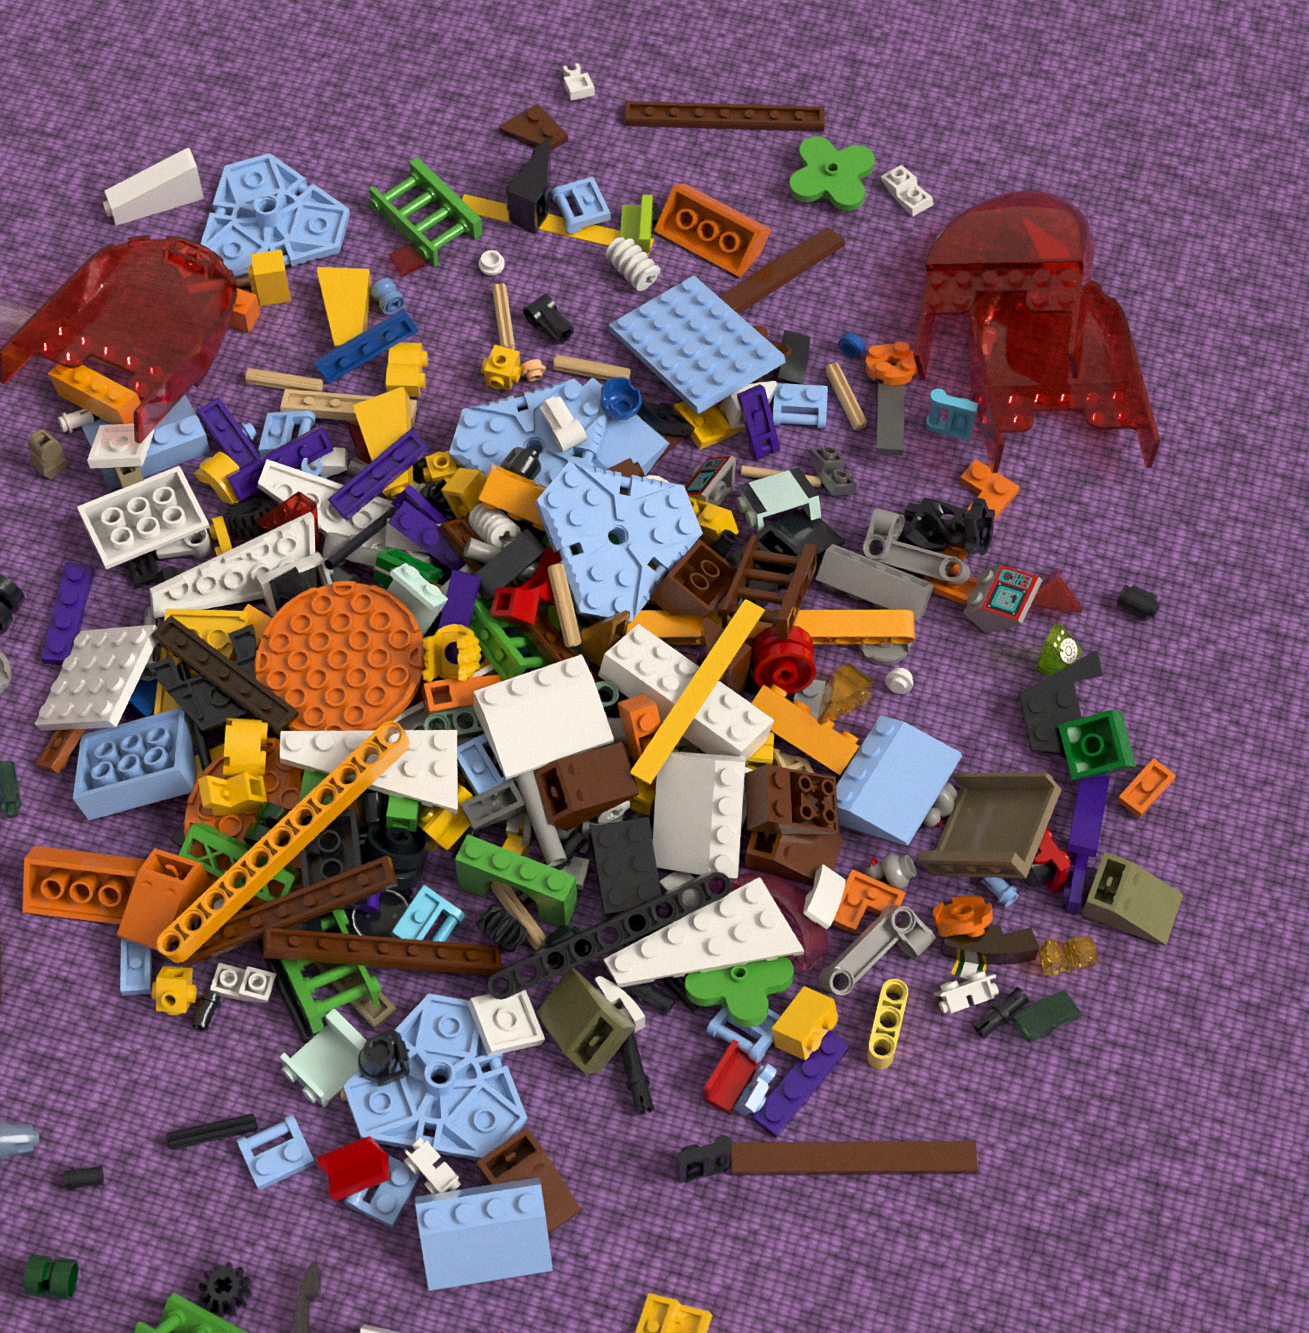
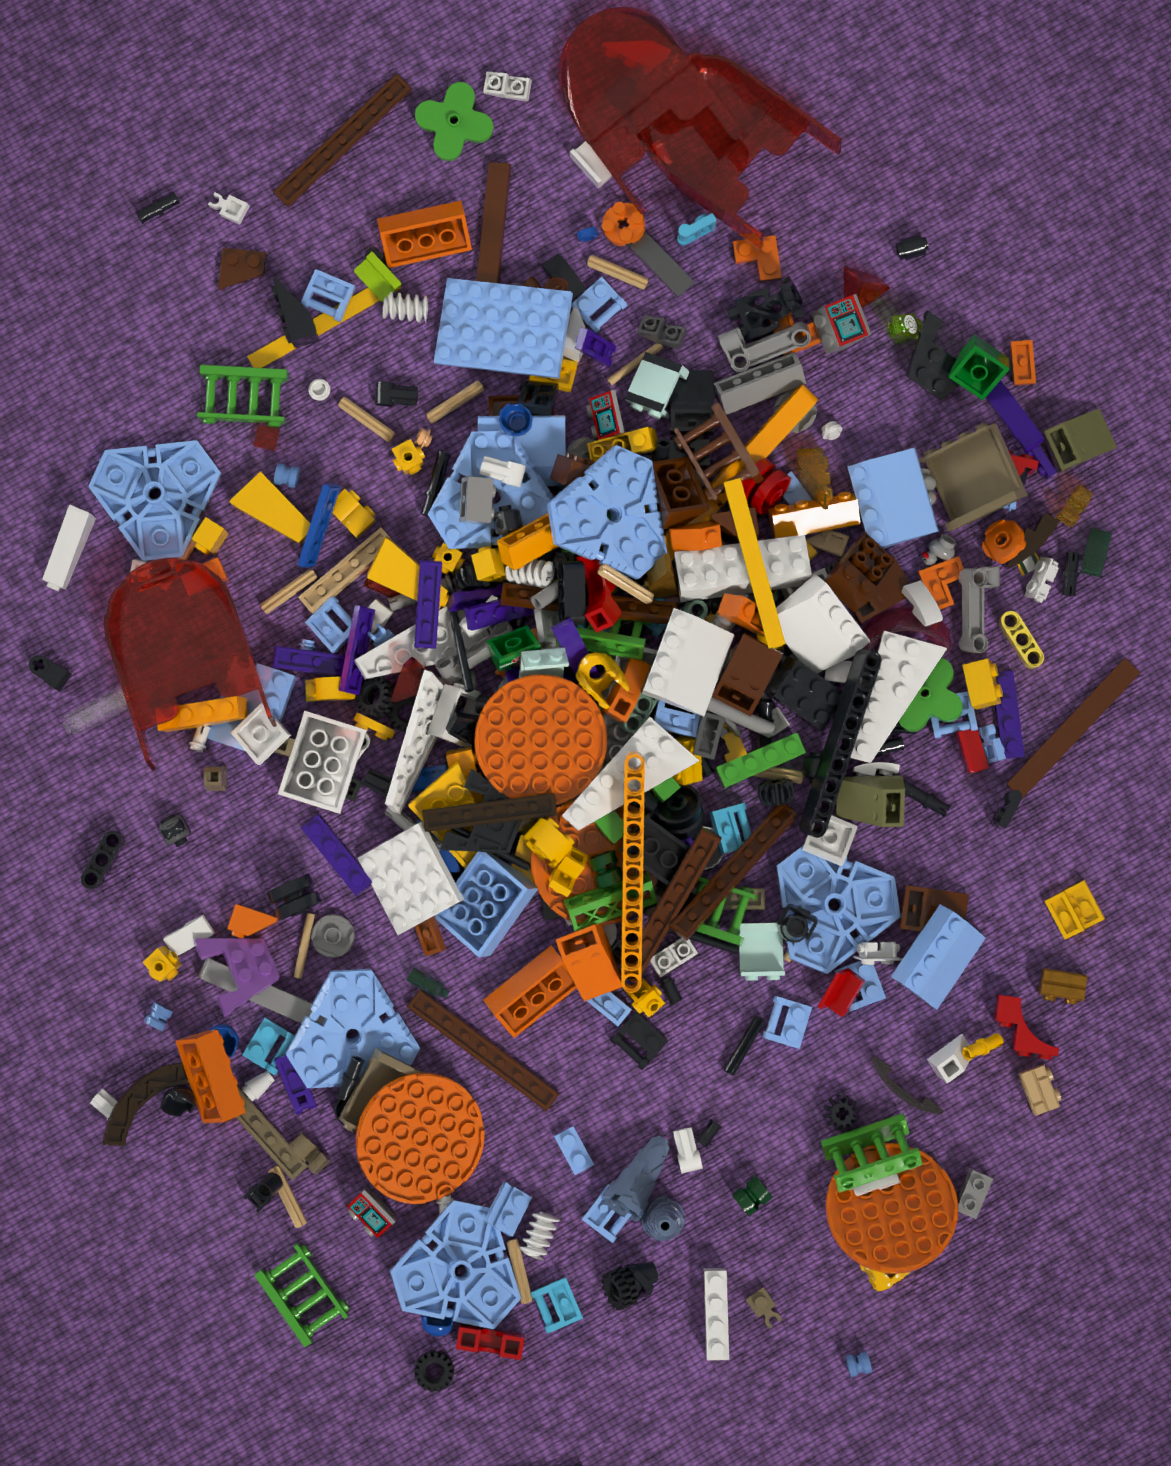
camera: 50 degrees left, 25 degrees up
(24, 262) = (51, 674): none -> black piece
(41, 1178) = (687, 1155): none -> white piece
(134, 1031) = (644, 1035): none -> black plate
(513, 423) = (476, 500): none -> light grey brick
(521, 36) = (157, 207): none -> black pin
(671, 629) = (695, 536): none -> orange slope
(911, 300) = (590, 164): none -> white panel

